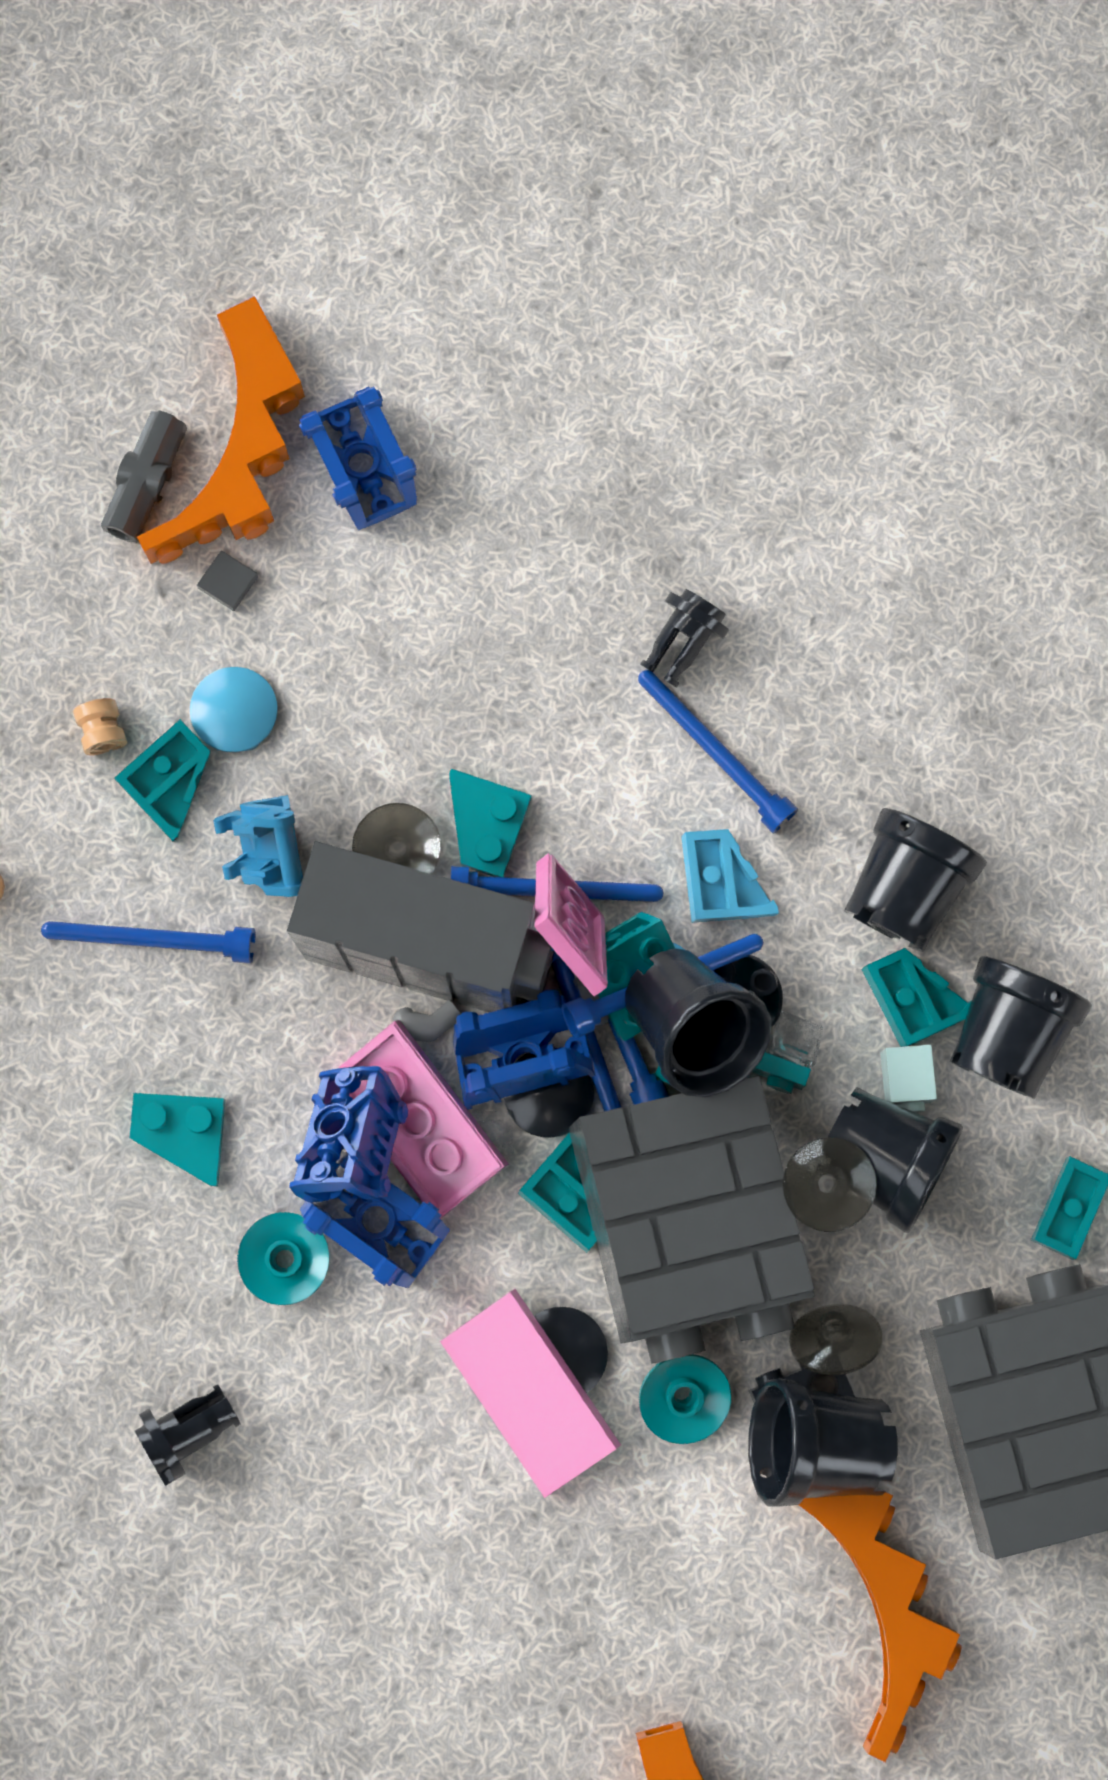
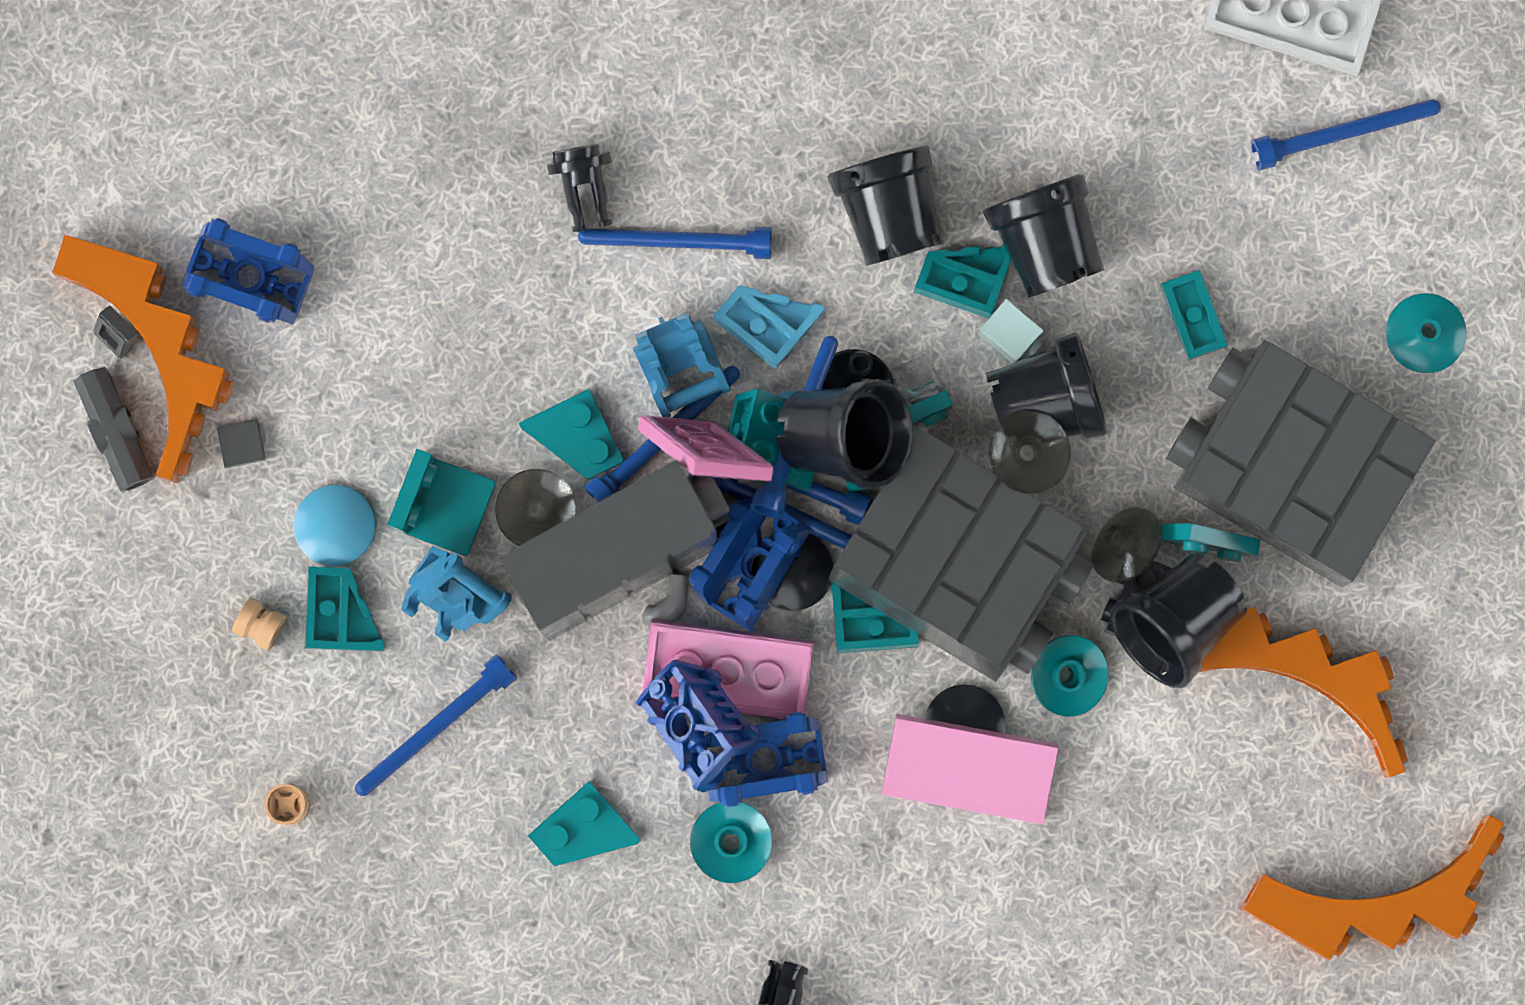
camera: 40 degrees left, 5 degrees up
(219, 406) = (115, 332): none -> dark grey tile
(328, 769) = (441, 503): none -> teal bracket
(627, 826) = (673, 348): none -> dark azure piece
(902, 1396) = (1200, 539): none -> teal wing

